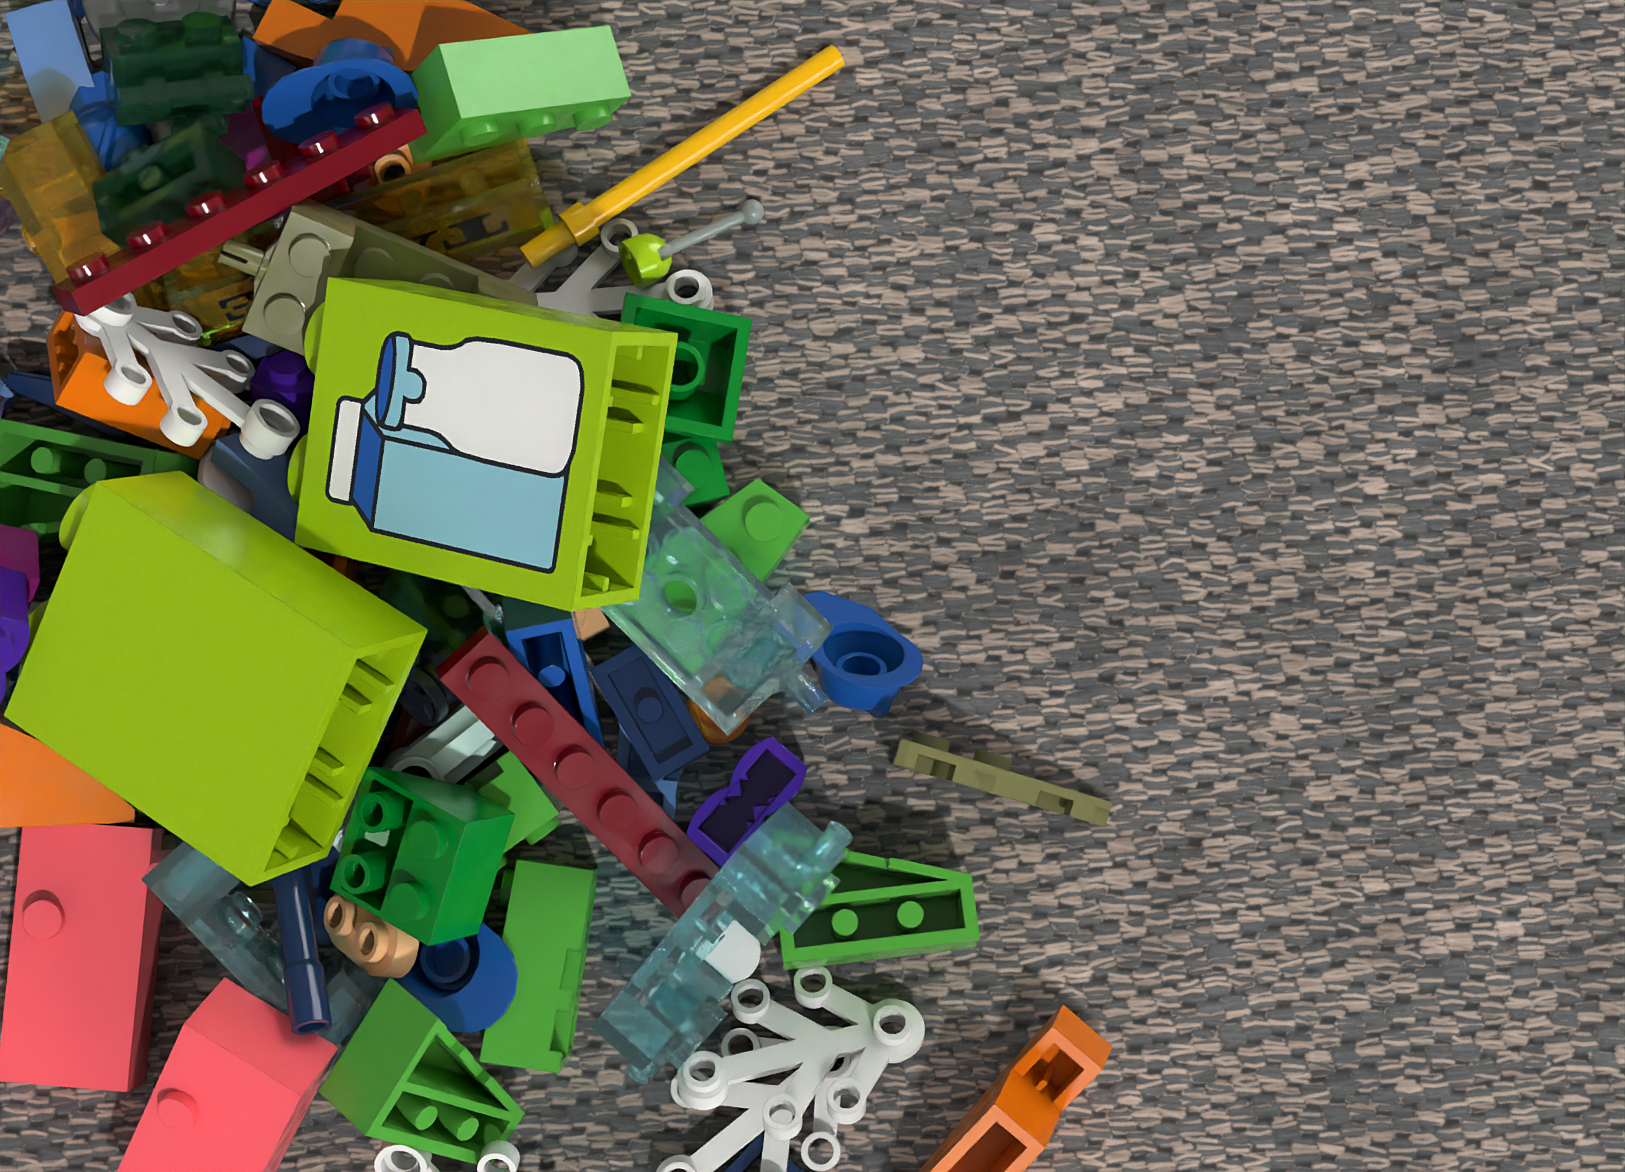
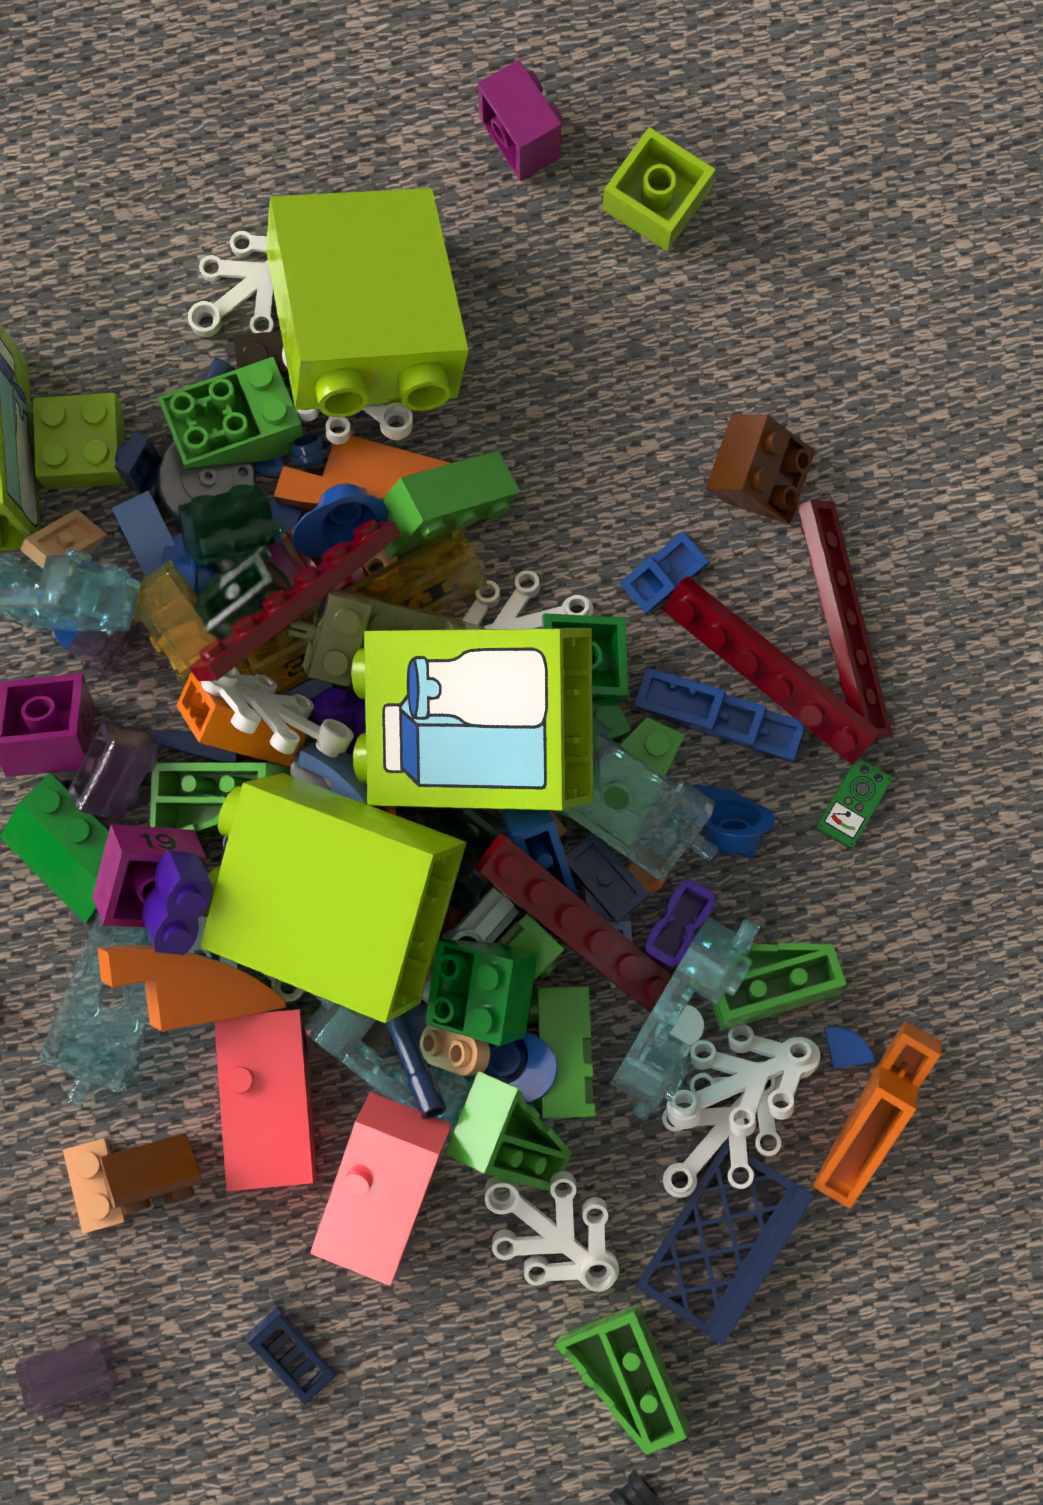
camera: 15 degrees left, 5 degrees down
(581, 222) = (502, 576): yellow bar -> none
(650, 257) = (550, 591): hinge -> none
(832, 258) = (660, 574): none -> blue slope
(875, 492) = (720, 715): none -> blue slope
(962, 438) = (770, 670): none -> dark red plate
(969, 1029) = (846, 1048): none -> blue tile
(993, 775) = (831, 882): olive wing -> none
(1009, 120) = (760, 467): none -> reddish brown slope
(1052, 661) = (853, 803): none -> tile
(1092, 379) = (843, 613): none -> dark red plate

